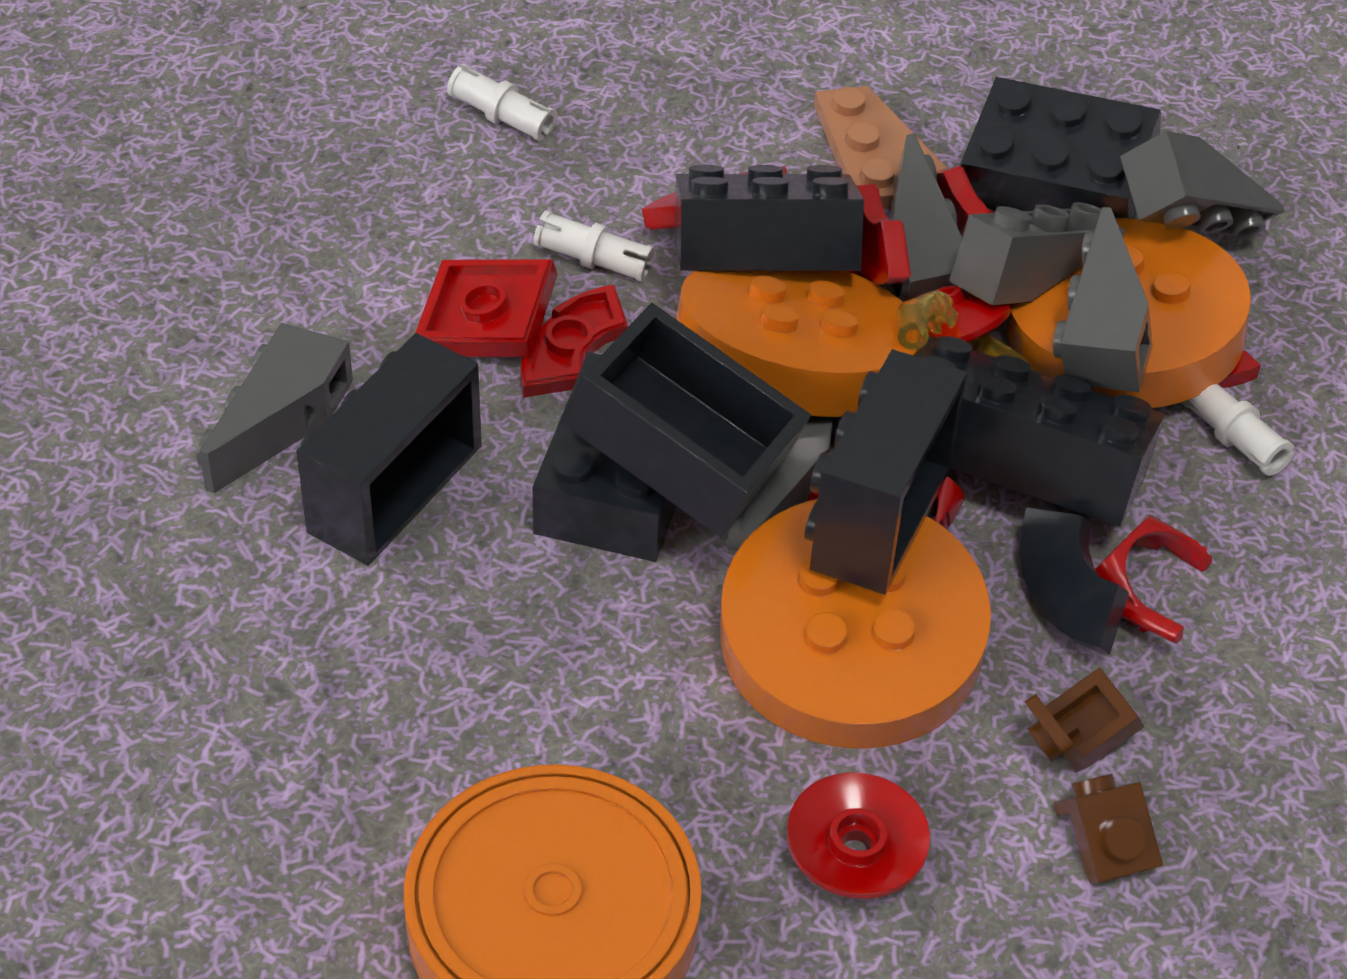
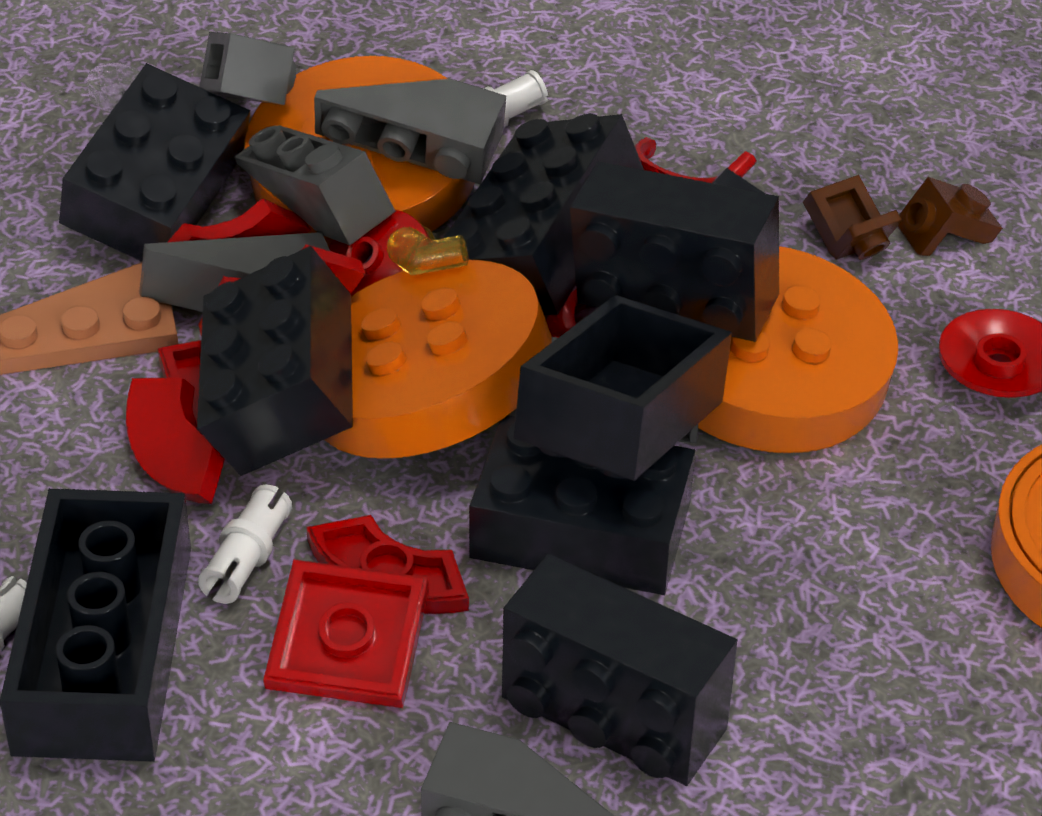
camera: 90 degrees left, 5 degrees down
(488, 150) = (97, 626): none -> black brick

